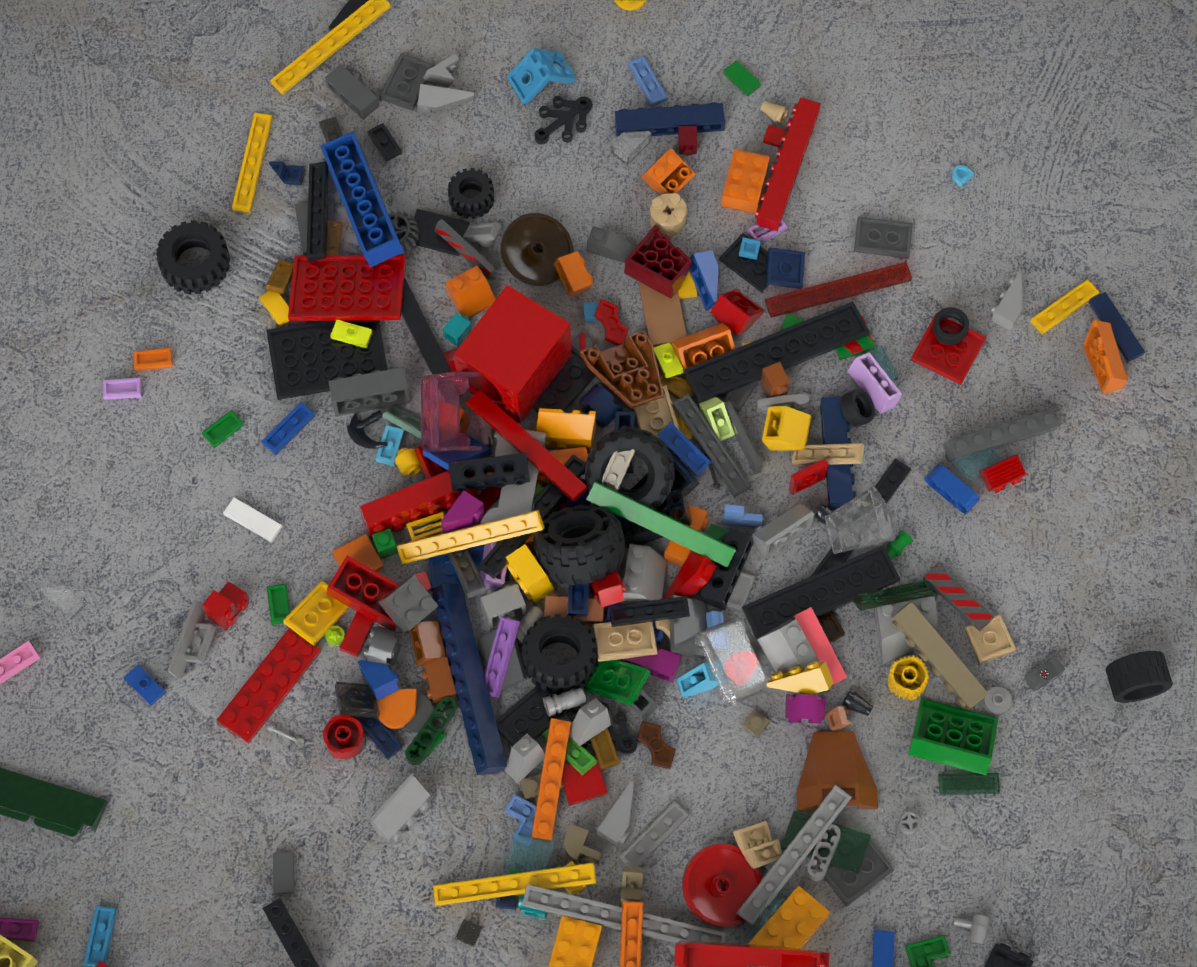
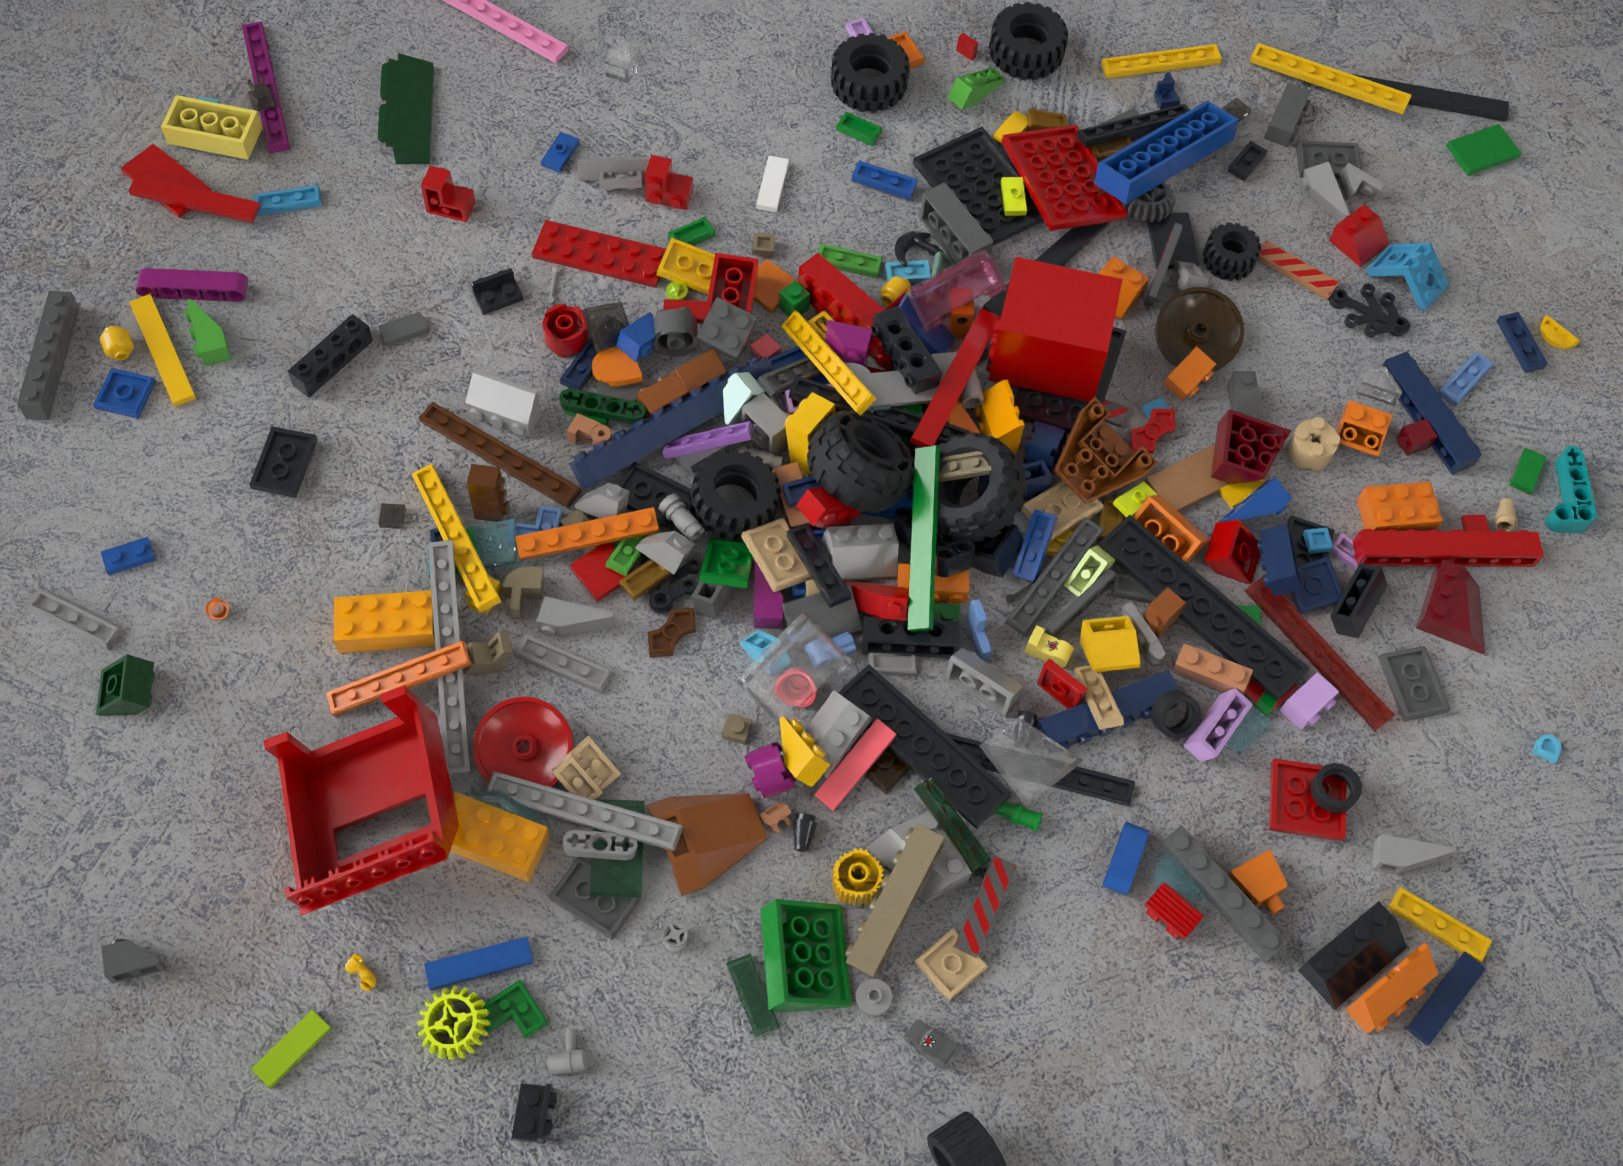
camera: 65 degrees right, 5 degrees down
(161, 794) = (445, 198): none -> red brick
(166, 376) = (872, 53): none -> black tyre
(174, 308) = (967, 46): none -> red tile
(220, 318) = (974, 87): none -> bright green slope
(277, 783) = (496, 291): none -> black bracket
(315, 549) = (763, 244): none -> dark tan plate
(357, 487) = (852, 261): none -> bright green tile
(441, 829) = (500, 455): none -> reddish brown tile
(450, 748) = (587, 430): none -> nougat leg
(473, 615) = (737, 393): none -> light aqua slope
(490, 844) = (487, 493): none -> reddish brown brick
(491, 93) = (1360, 235): none -> red slope
(504, 152) = (1297, 270): none -> nougat tile
(632, 27) = (1521, 342): none -> dark blue plate
(750, 47) = (1578, 502): none -> teal beam
(760, 282) = (1279, 560): none -> dark blue brick
(769, 474) = (1046, 646): none -> light yellow leg
(810, 243) = (1359, 600): none -> black brick
(832, 367) = (1212, 670): none -> nougat brick
(834, 183) = (1453, 607): none -> dark red wedge
(875, 313) = (1309, 701): none -> lavender brick
(999, 406) = (1261, 881): none -> orange torso
(1069, 370) = (1355, 955): none -> black slope

